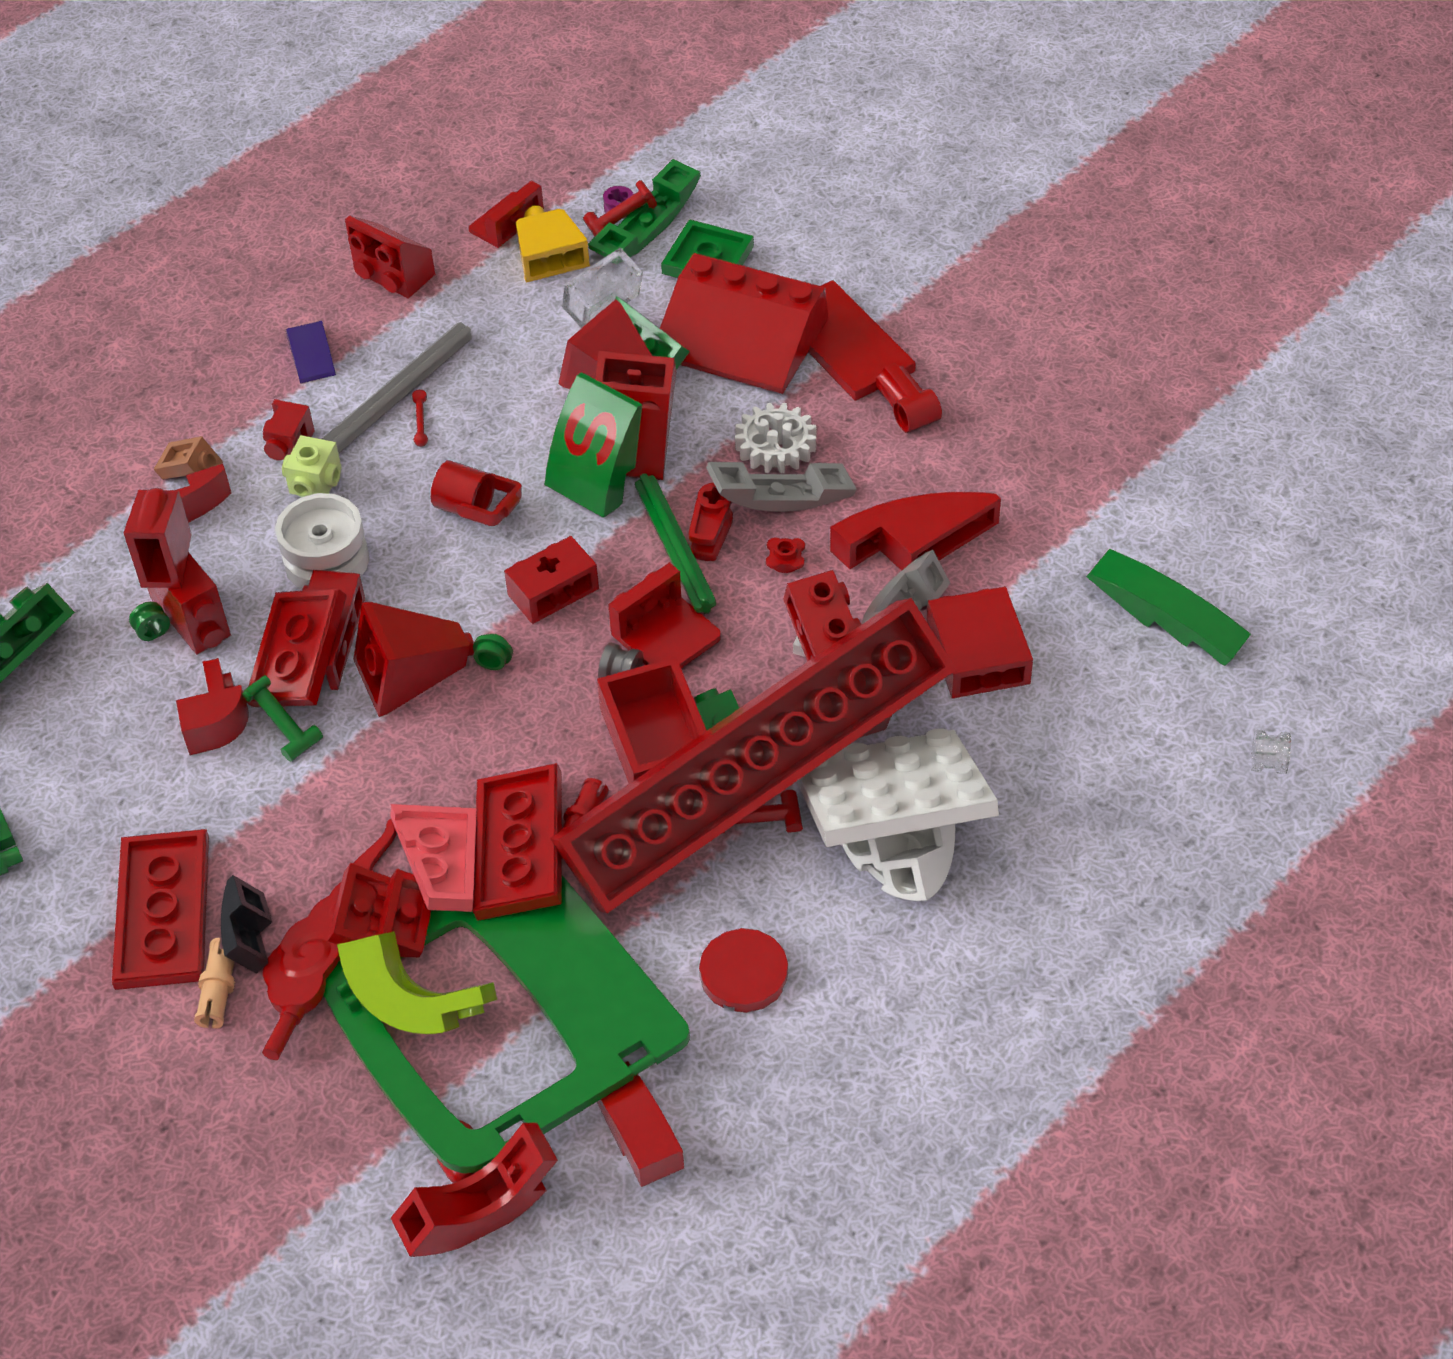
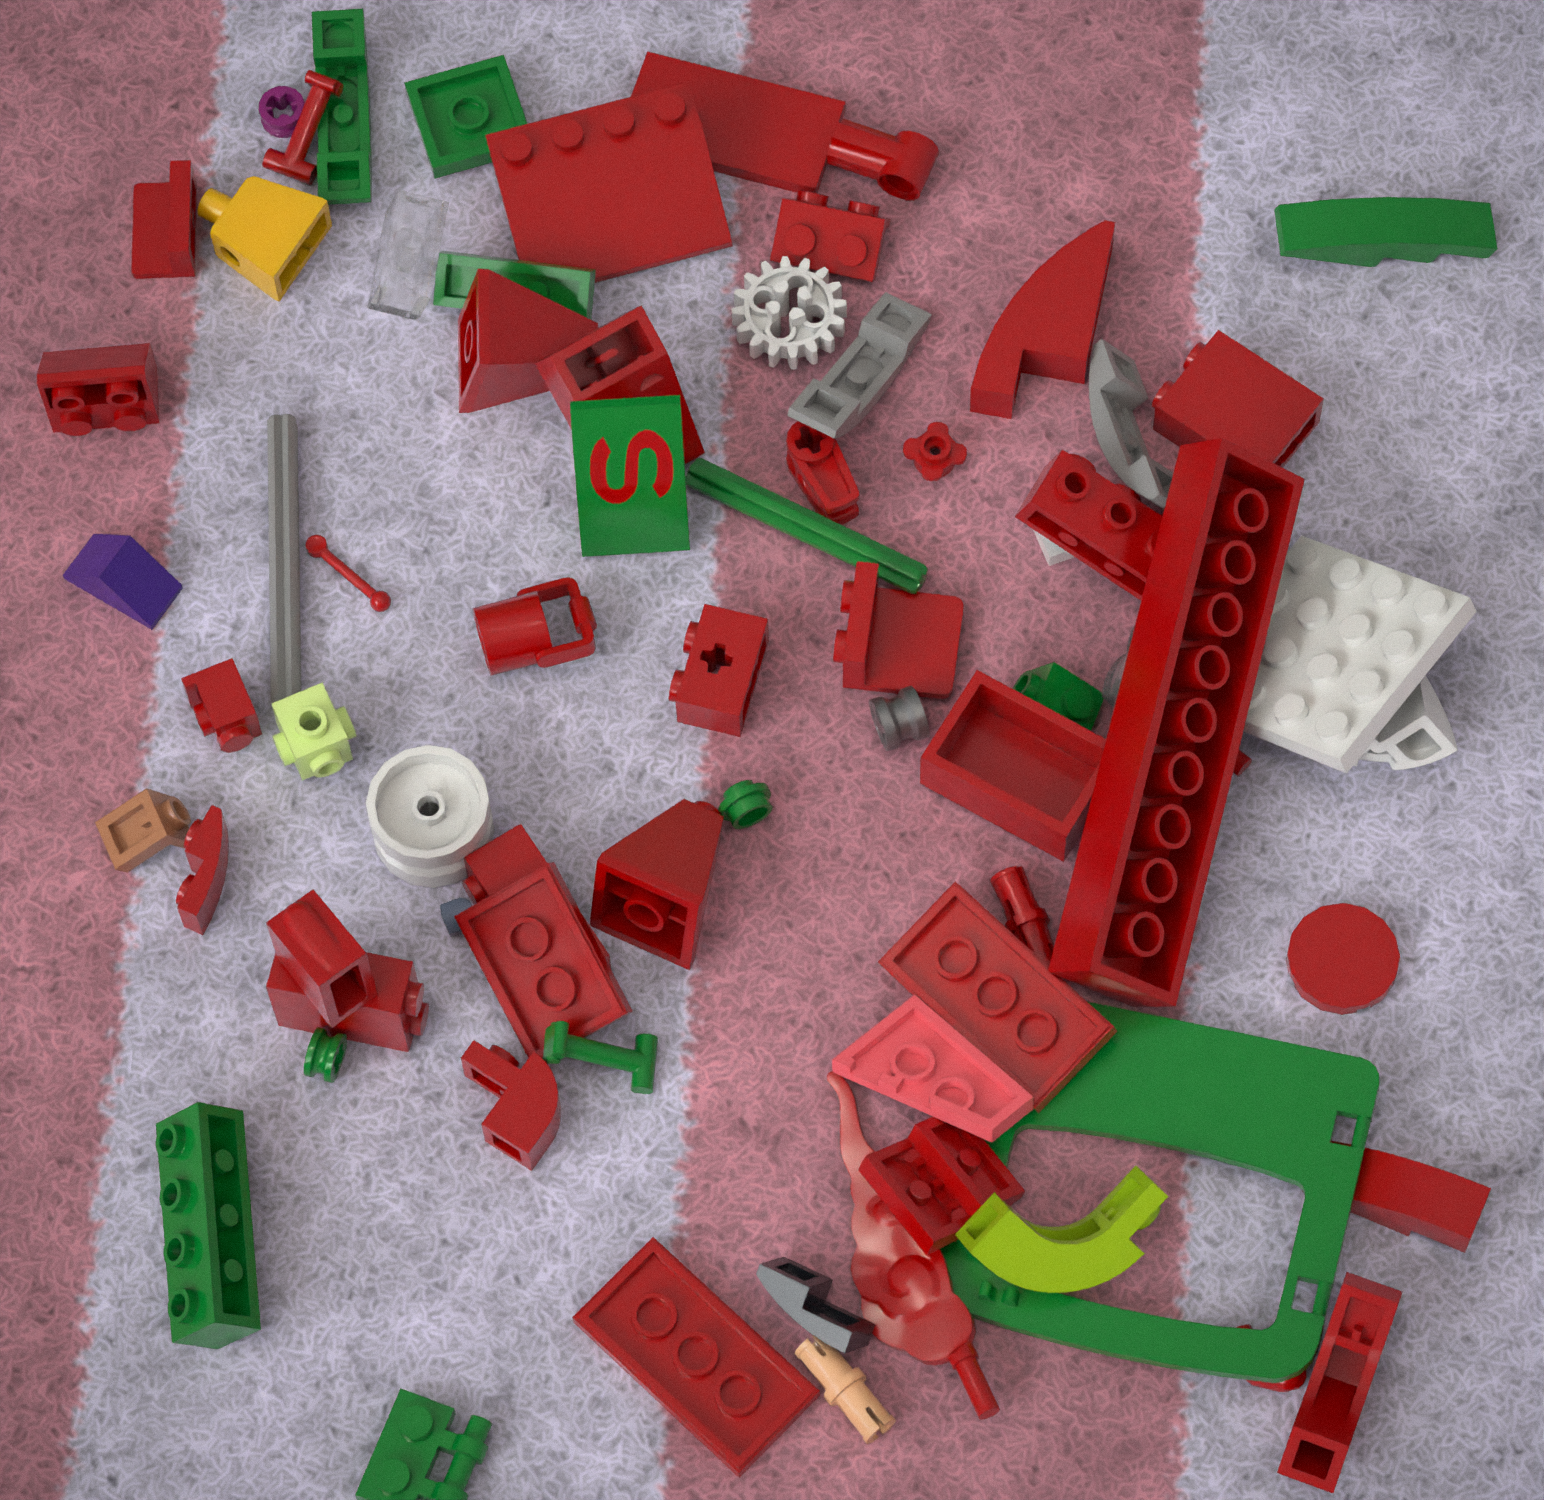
camera: 40 degrees left, 15 degrees up
(838, 418) = (830, 236): none -> red bracket

